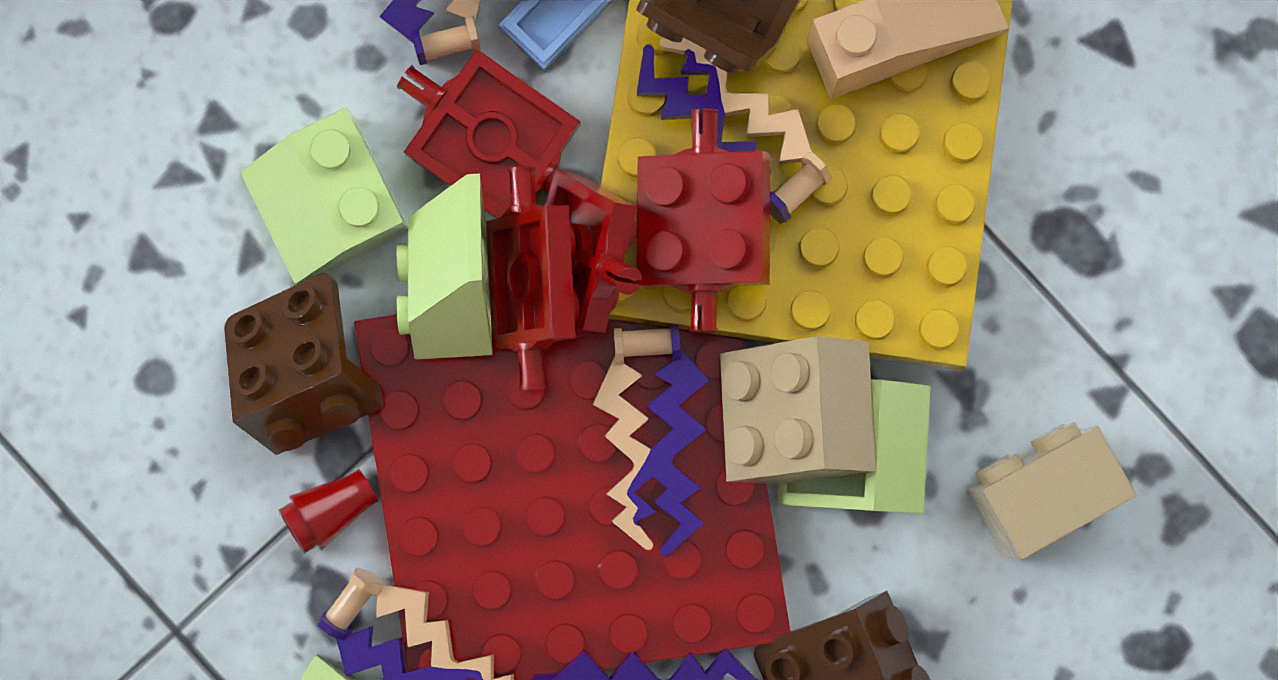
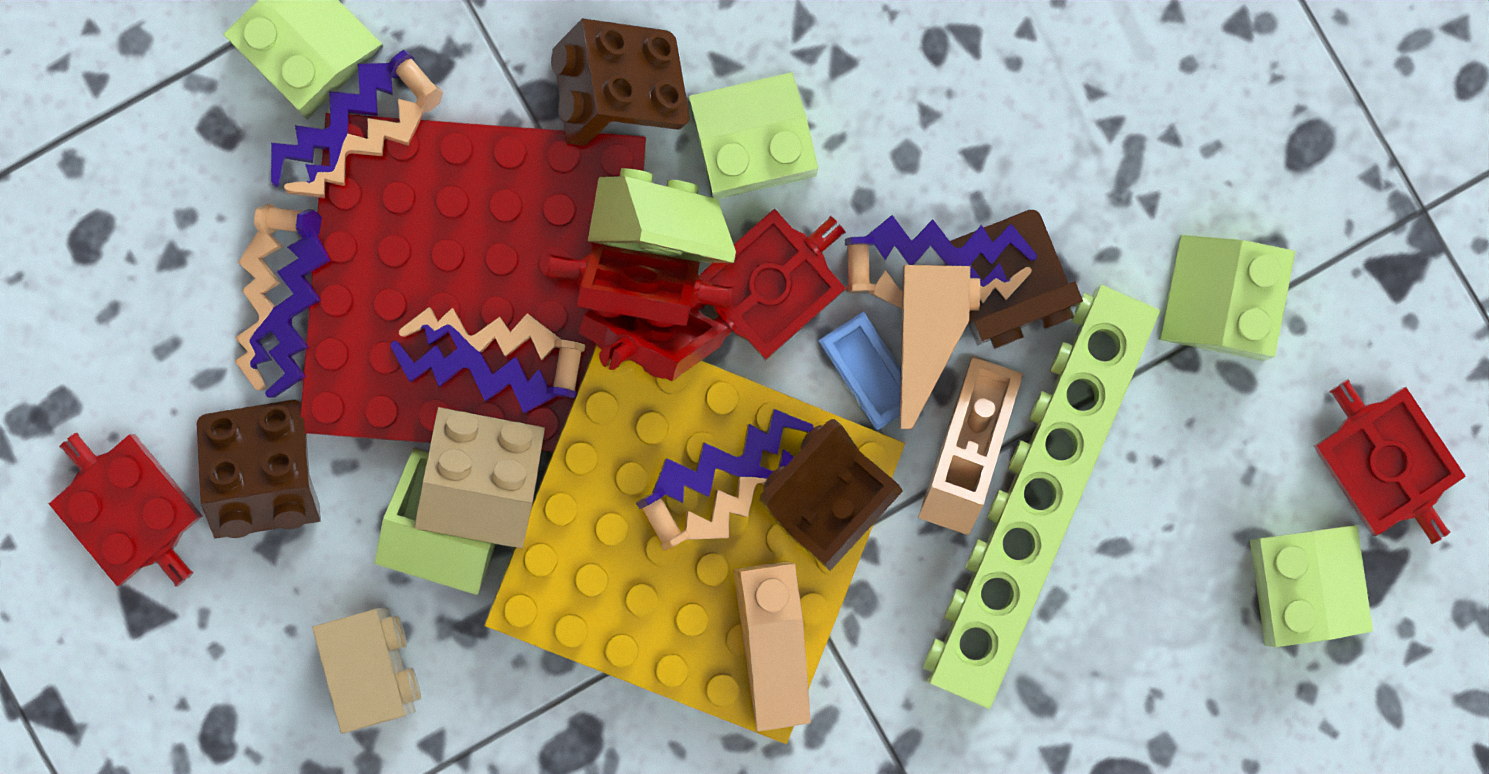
camera: 95 degrees right, 0 degrees up
(327, 510) = (496, 79): red cone -> none
(703, 220) = (652, 435): red plate -> none

